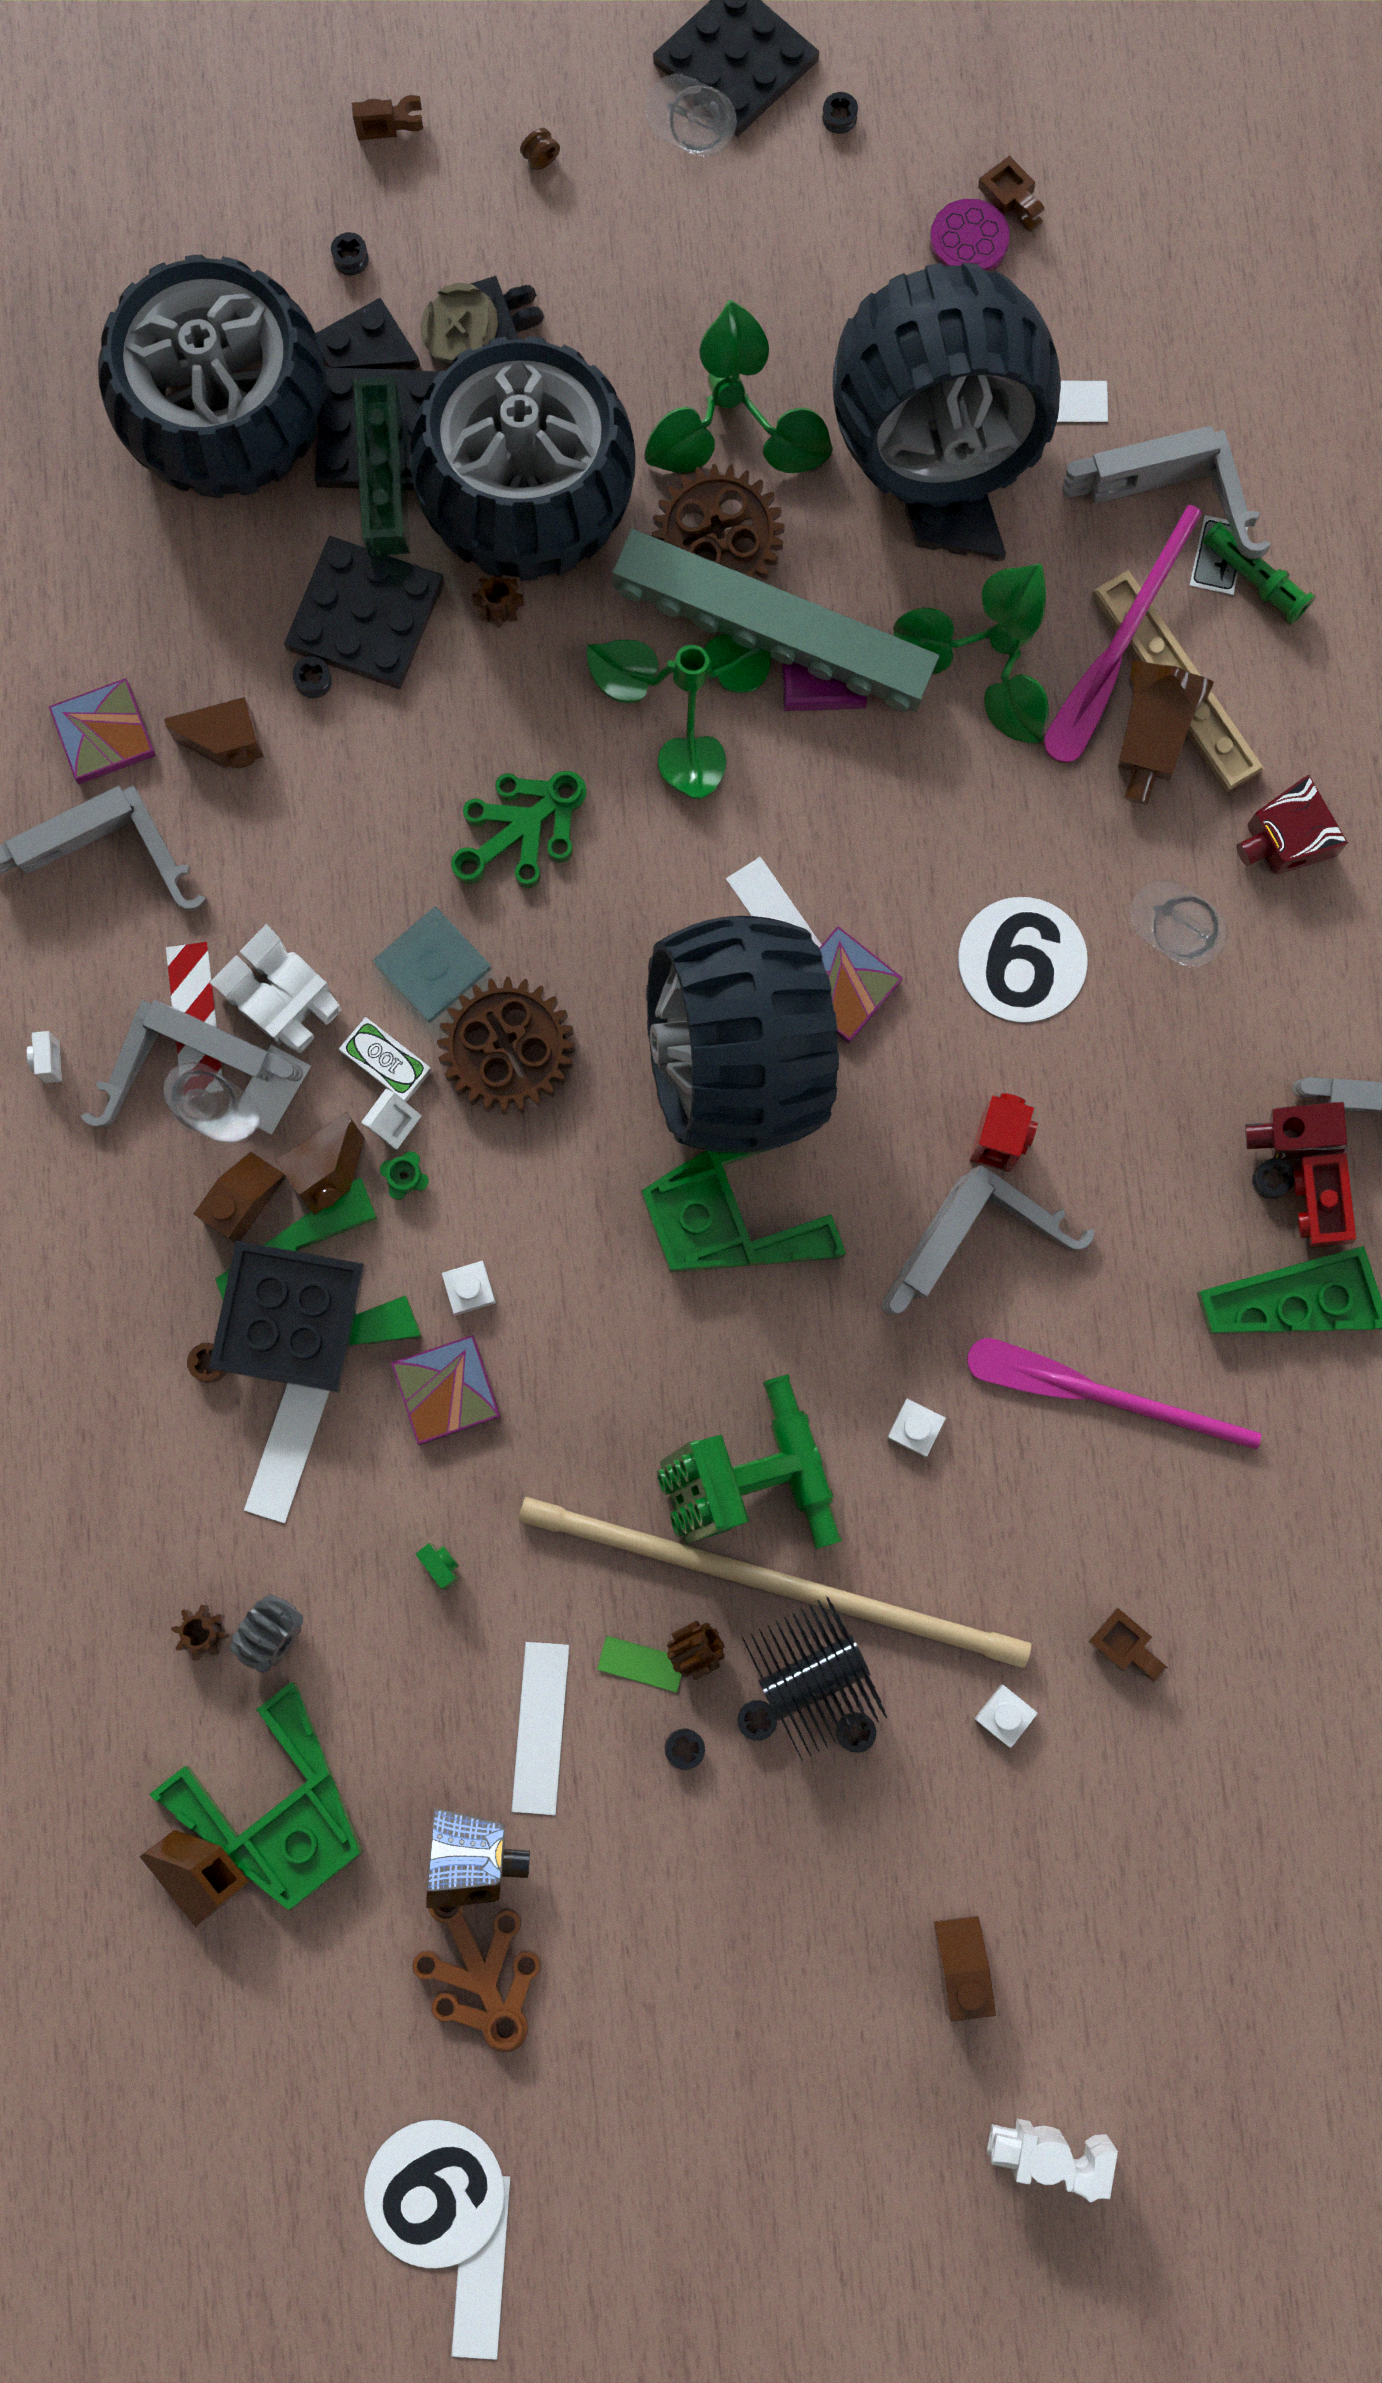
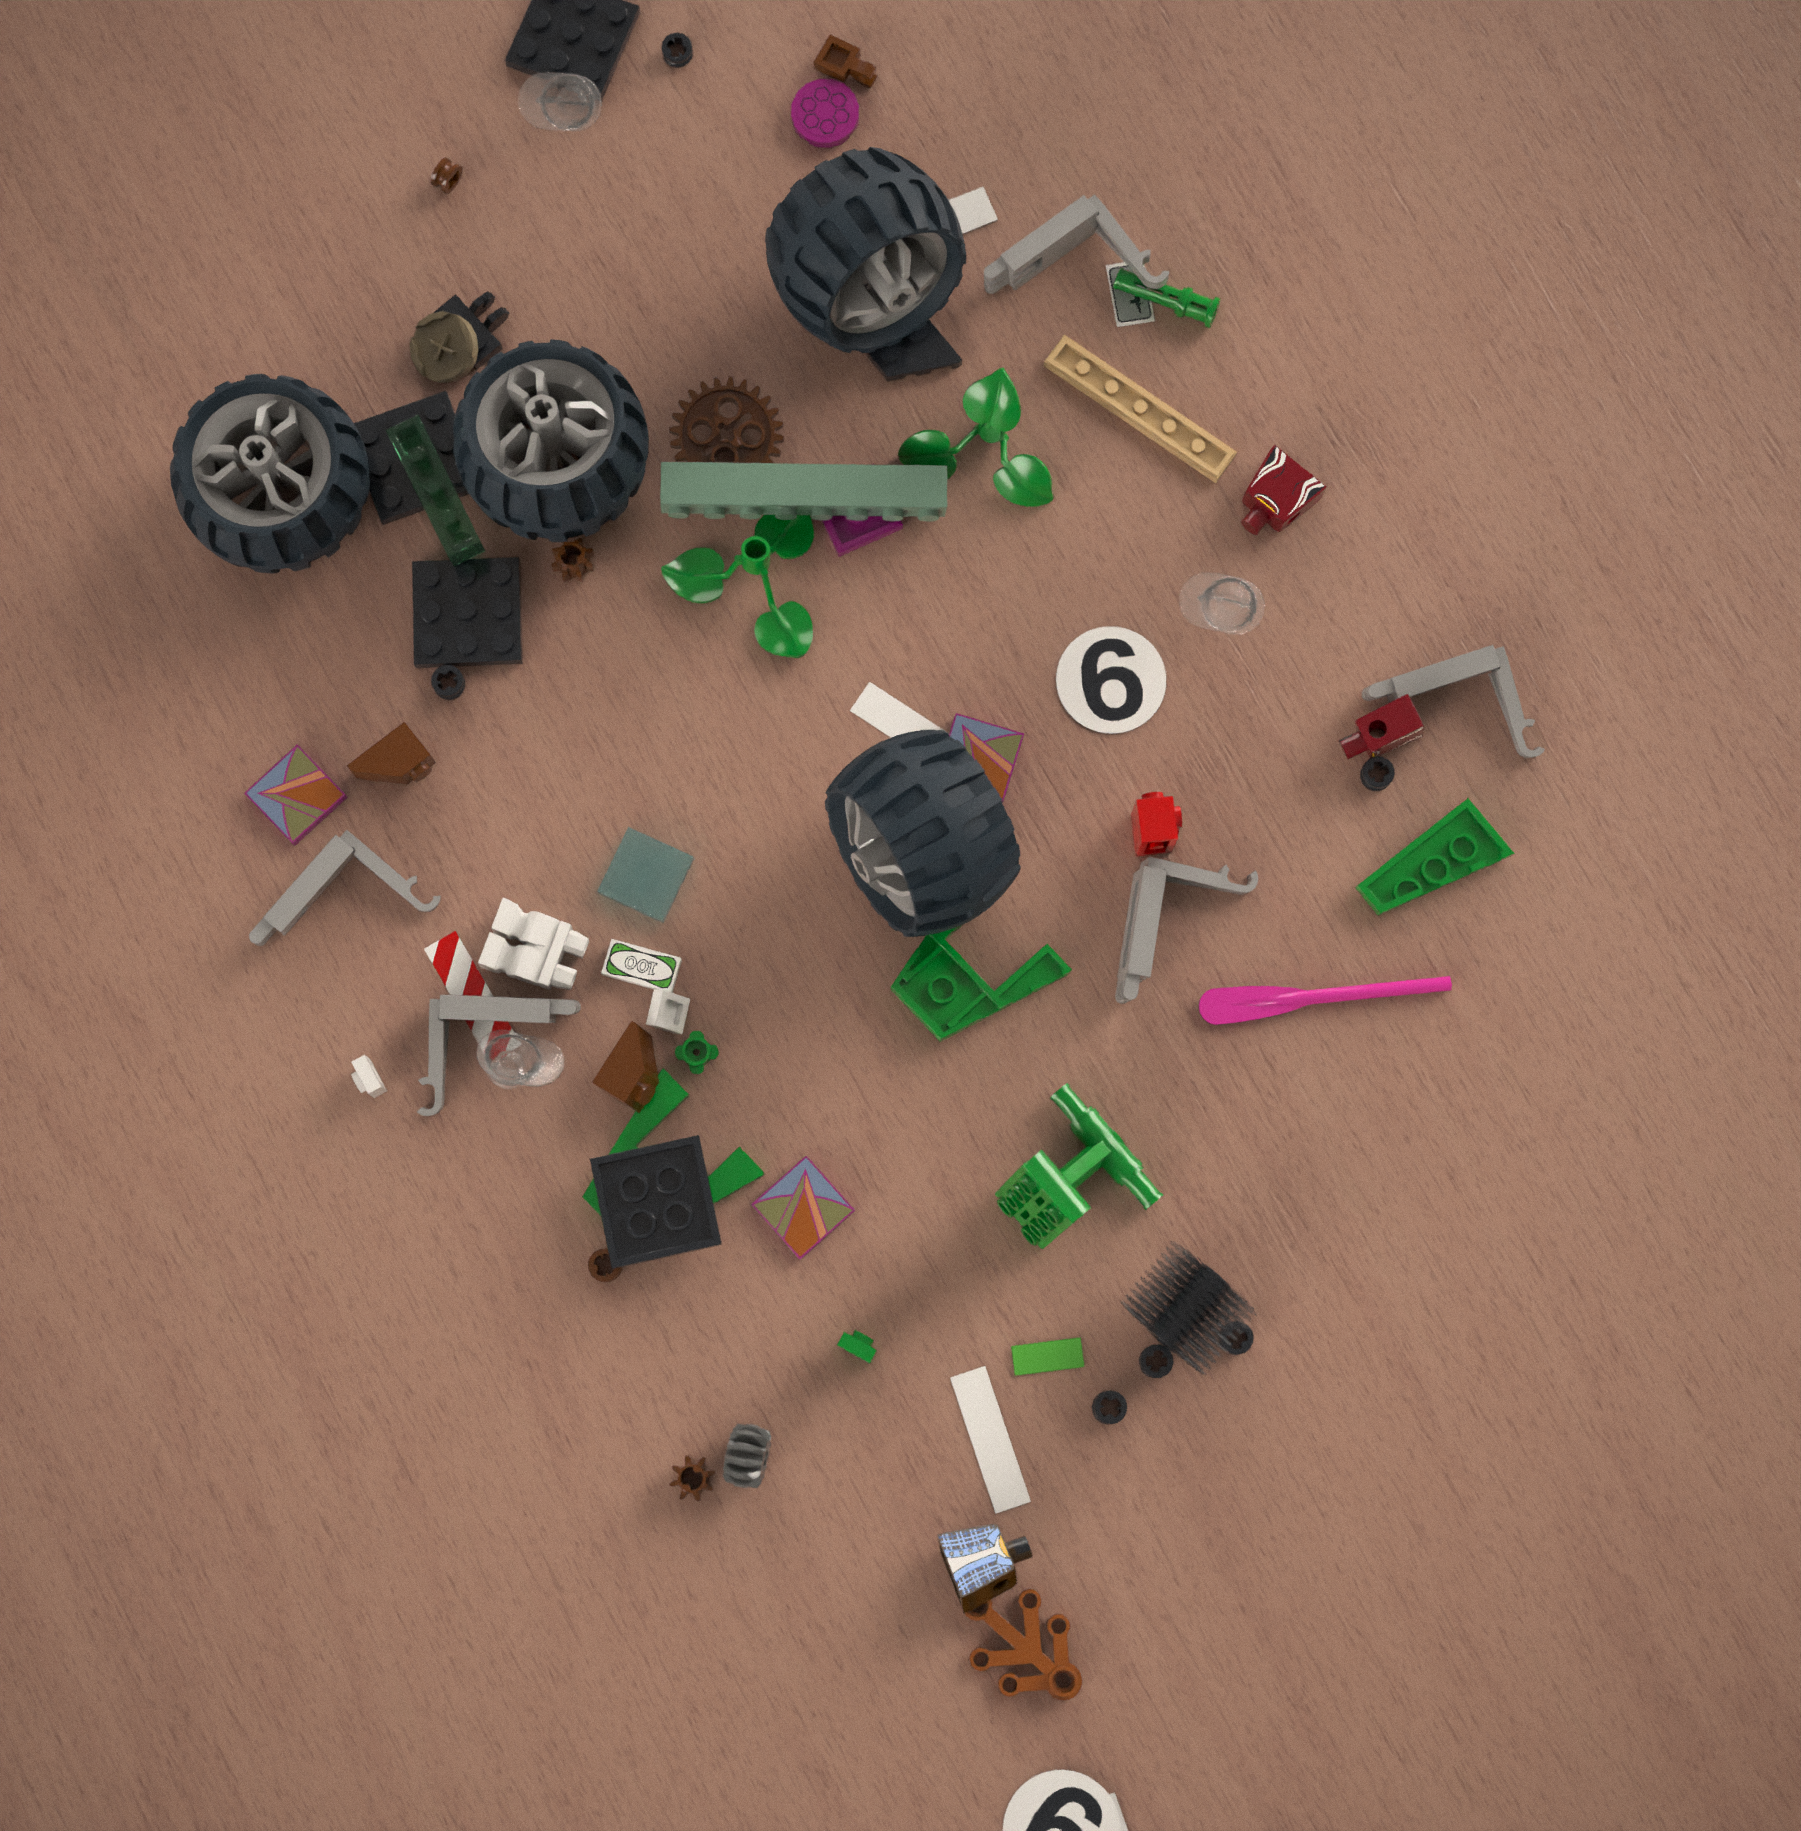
camera: 25 degrees left, 0 degrees up
(194, 1874) = (771, 1665): reddish brown slope -> none
(239, 1196) = (574, 1123): reddish brown slope -> none
(274, 1096) = (565, 1030): white sticker -> none
(286, 1452) = (697, 1309): white sticker -> none
(298, 1840) = (839, 1607): green wing -> none
(349, 242) = (322, 313): black bush -> none
(366, 340) = (373, 388): black wing -> none
(381, 119) = (306, 200): reddish brown plate -> none
(468, 1288) = (786, 1120): white plate -> none
(524, 823) = (670, 731): green plant -> none
(539, 1028) = (755, 891): reddish brown gear -> none
(695, 1650) = (1086, 1327): reddish brown gear -> none
(731, 348) = (679, 288): green plant -> none
(916, 1428) = (1183, 1083): white plate -> none
(964, 1969) = (1394, 1482): reddish brown slope -> none
(992, 1644) = (935, 1271): tan piece -> none
(1006, 1716) = (1345, 1276): white plate -> none
(1047, 2158) = (1521, 1595): white hips -> none
(1085, 704) = (1075, 457): dark pink piece -> none
(1124, 1642) = (1412, 1182): reddish brown plate -> none
(1158, 723) = (1140, 451): reddish brown piece -> none
(1327, 1201) = (1426, 775): red brick -> none

